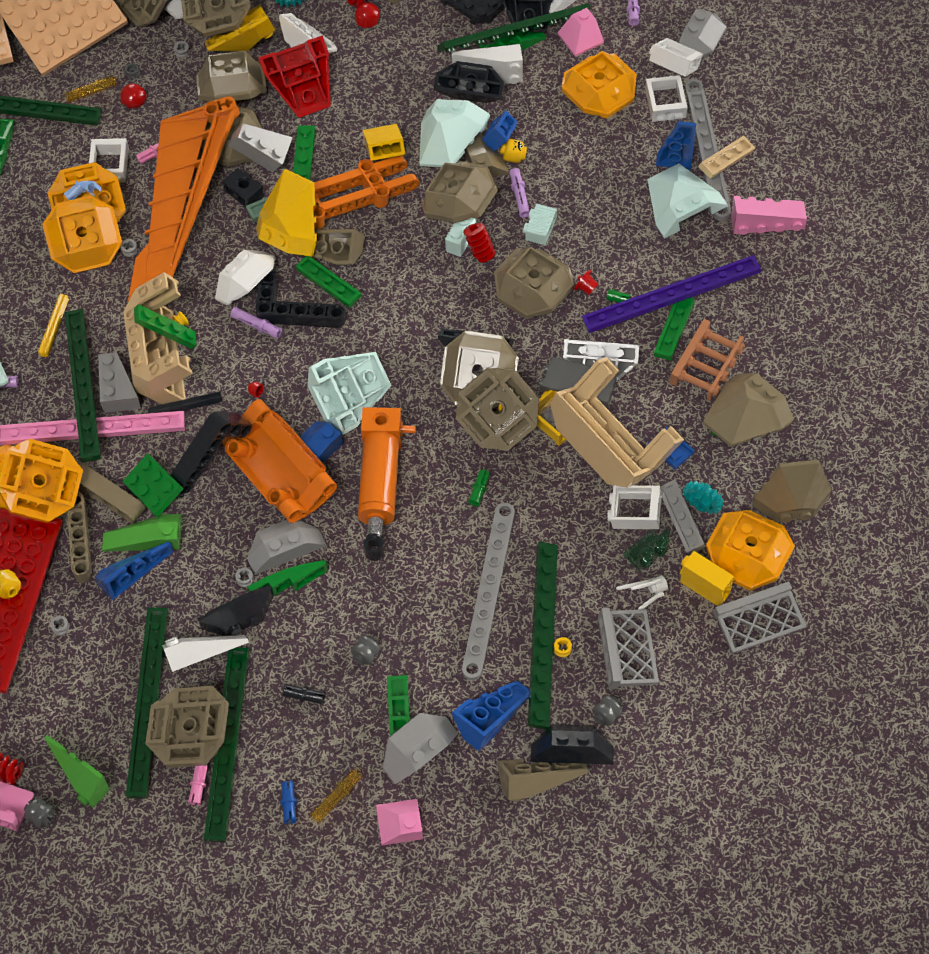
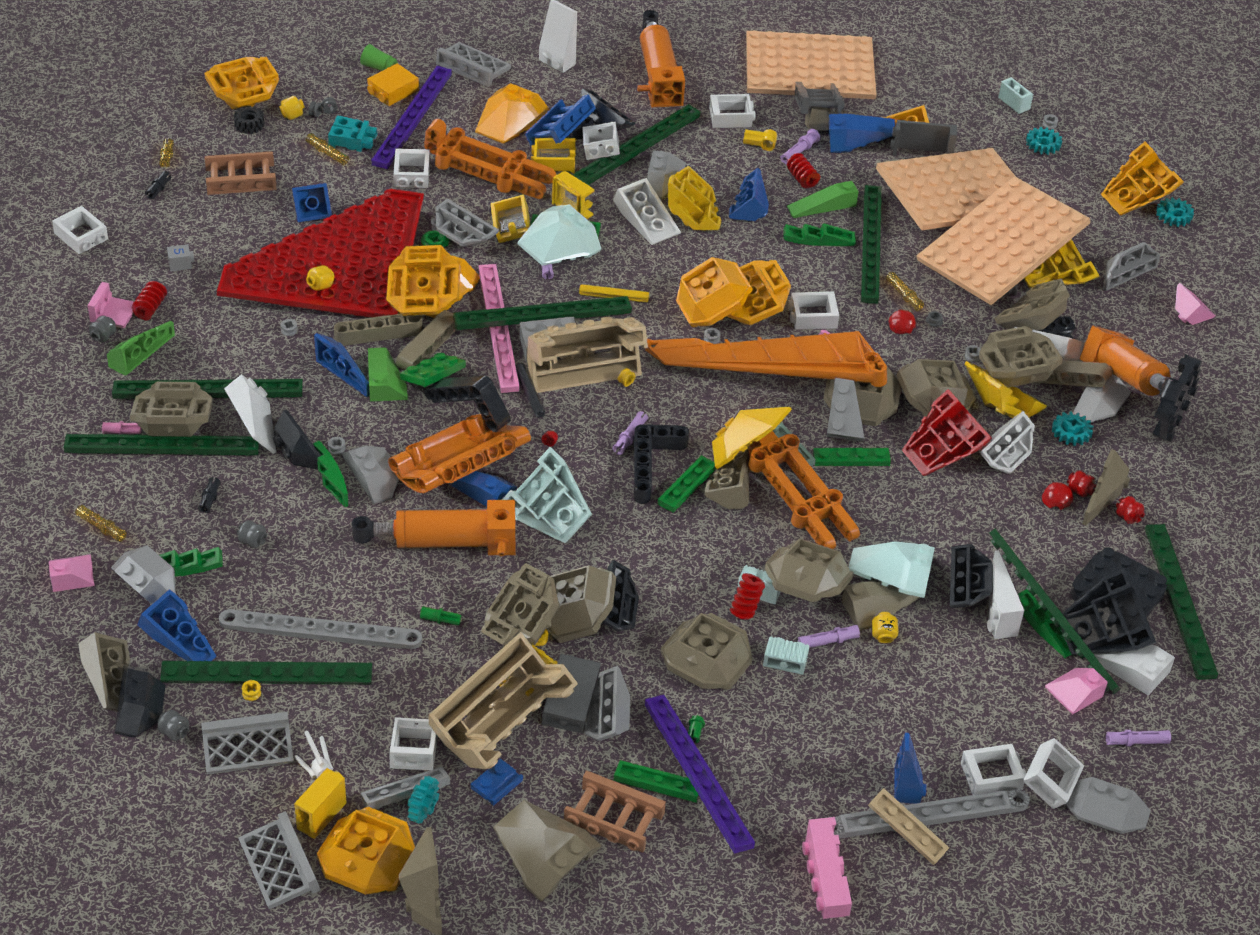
camera: 80 degrees right, 15 degrees down
(81, 187) = (755, 277): light blue piece -> none
(164, 326) = (604, 354): green plate -> none
(243, 188) = (802, 408): black brick -> none
(243, 275) = (688, 415): white wedge -> none
(288, 802) = (97, 490): blue pin -> none
(383, 142) = (870, 510): yellow brick -> none
(500, 130) = (905, 608): blue brick -> none
(586, 283) = (708, 696): red piece -> none
(600, 85) = (999, 706): light orange piece -> none
(648, 548) = (362, 757): clear green bracket -> none
(678, 195) = (844, 786): light aqua wedge -> none

